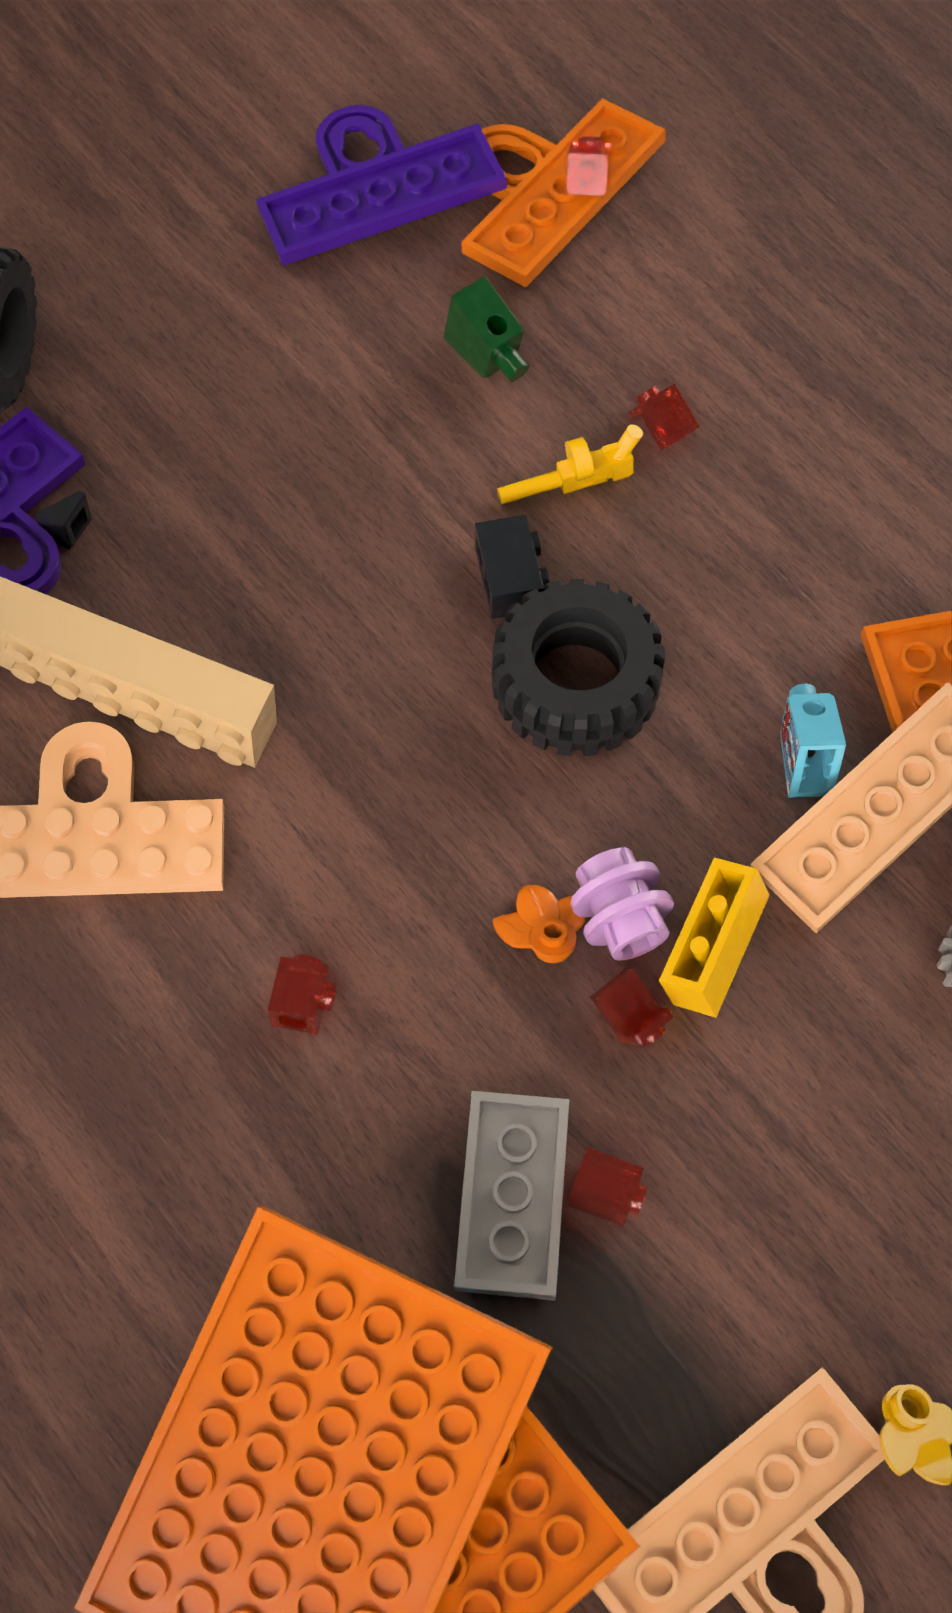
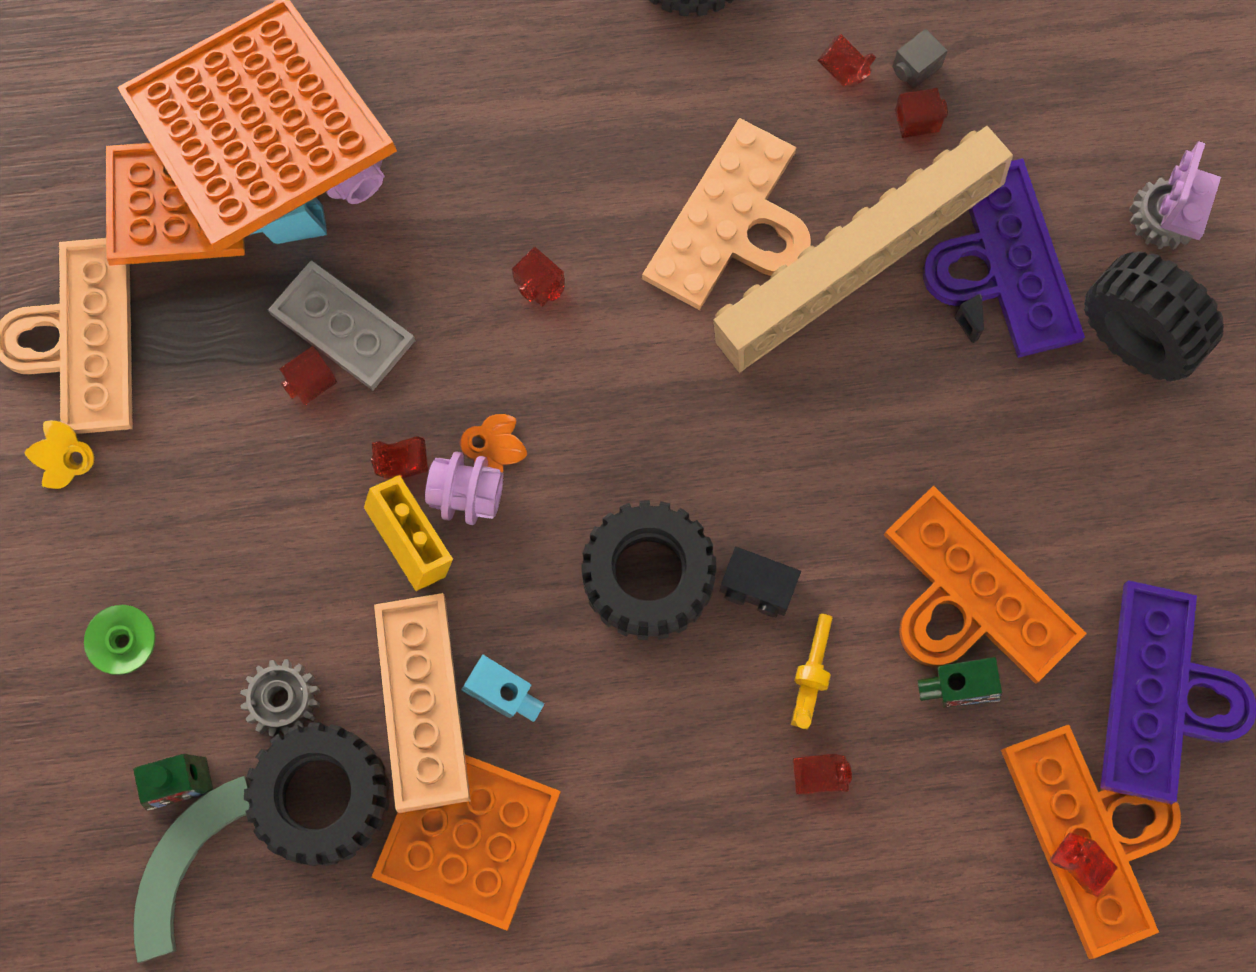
camera: 125 degrees right, 10 degrees up
(368, 379) = (983, 585): none -> orange plate

